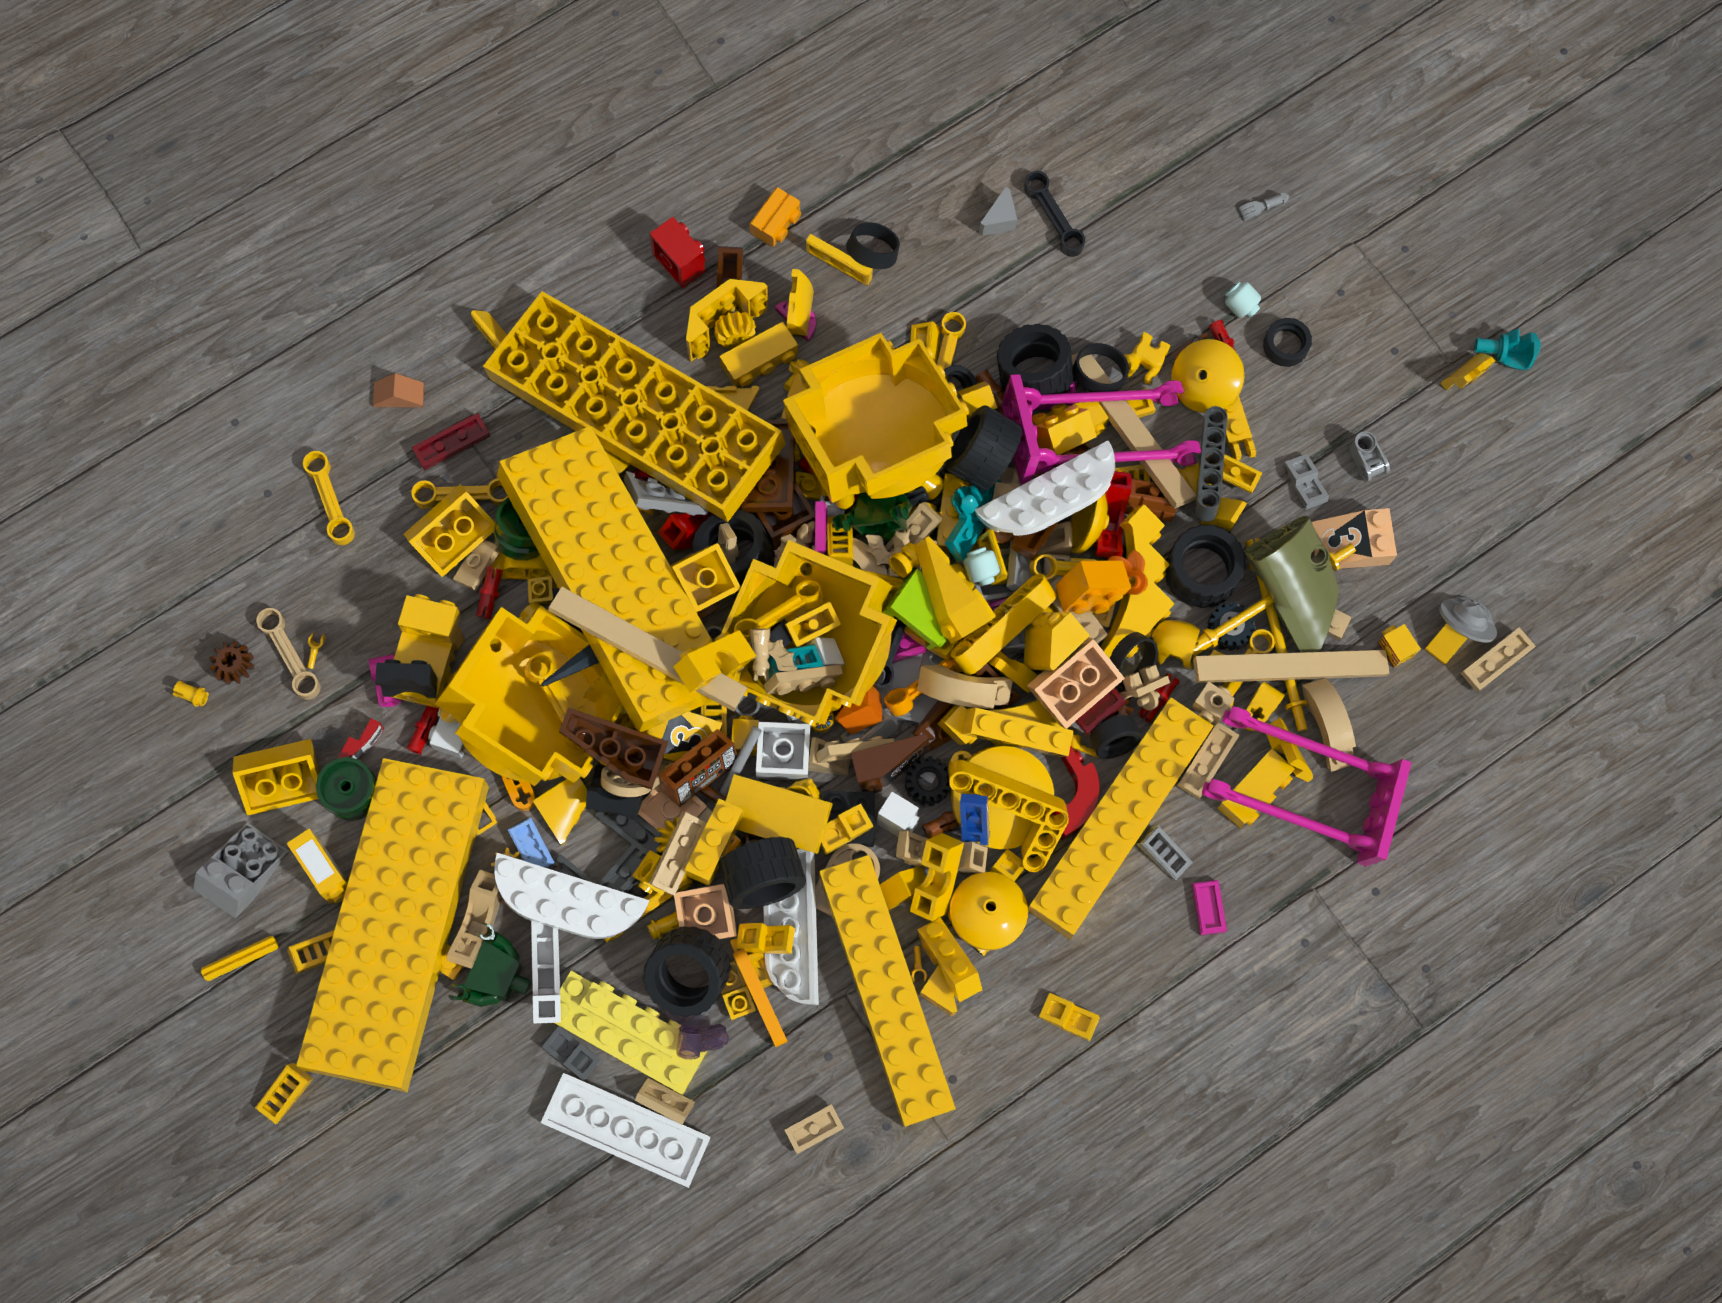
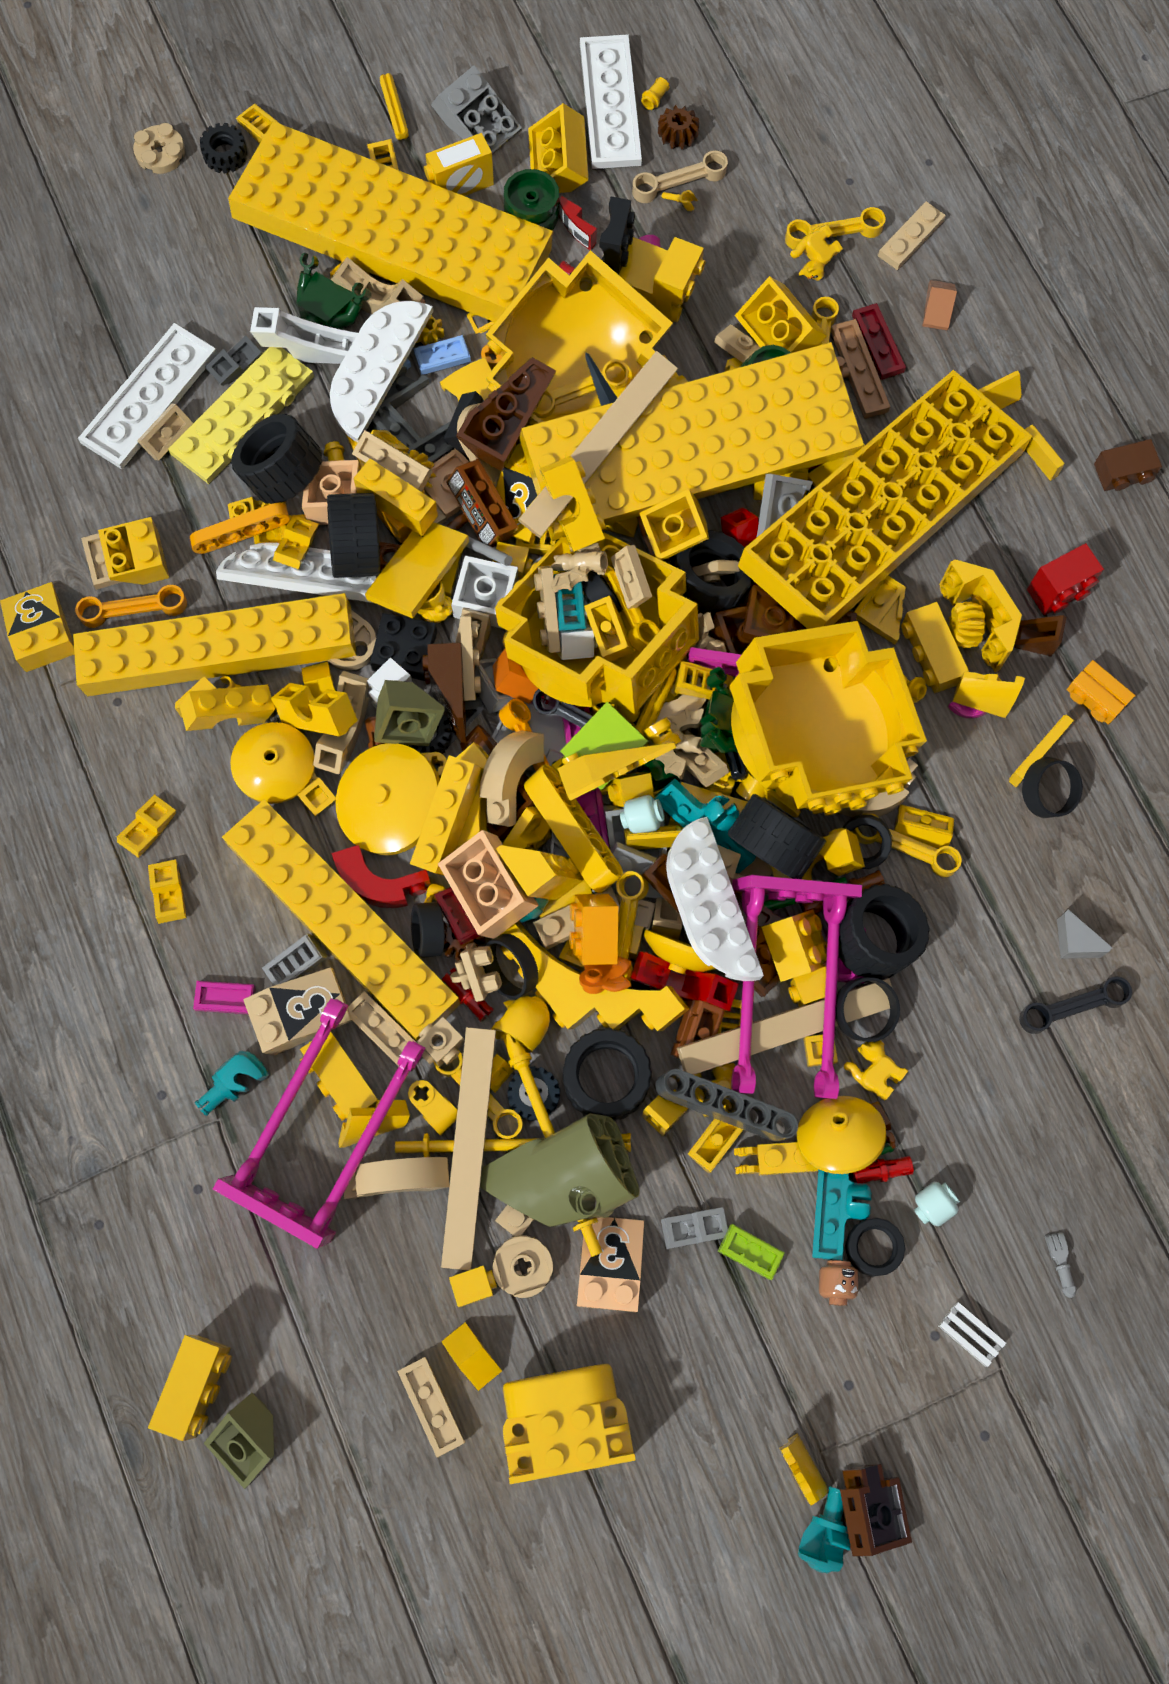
camera: 105 degrees right, 0 degrees up
(206, 736) = (610, 101): none -> white plate
(305, 1114) = (223, 160): none -> black tyre
(311, 1192) = (156, 136): none -> tan plate
(325, 427) = (911, 235): none -> tan plate
(360, 506) = (817, 251): none -> yellow animal
(483, 455) = (859, 368): none -> medium nougat plate
(489, 593) = (709, 352): red pin -> none
(549, 283) = (1043, 454): none -> yellow tile
(550, 212) = (1128, 465): none -> reddish brown brick
(700, 1039) = (211, 457): clear purple piece -> none
(766, 605) = (631, 577): none -> tan plate
(804, 1095) = (134, 552): none -> yellow slope
(845, 828) = (386, 630): yellow slope -> none
(855, 1087) = (131, 606): none -> light orange piece
(893, 1175) = (37, 627): none -> yellow slope
(929, 788) = (406, 714): none -> olive slope
(974, 818) = (360, 750): blue plate -> none
(1017, 805) = (372, 794): yellow beam -> none
(1126, 982) = (167, 891): none -> yellow slope
(1210, 836) = (292, 1010): none -> tan slope
(1265, 376) = (833, 1209): none -> teal plate
(1279, 882) = (226, 1080): none -> teal piece
(1315, 434) = (751, 1252): none -> lime plate
(1322, 364) = (838, 1282): none -> nougat head
(1342, 250) = (992, 1351): none -> white tile
(1364, 619) = (538, 1273): none -> tan plate
(1368, 461) = (709, 1311): light grey piece -> none
(1469, 618) = (480, 1378): light grey hat -> none
(1486, 316) = (874, 1511): none -> piece
(1489, 549) = (564, 1424): none -> yellow brick
(1539, 848) = (190, 1388): none -> yellow brick
(1564, 799) = (244, 1440): none -> olive slope

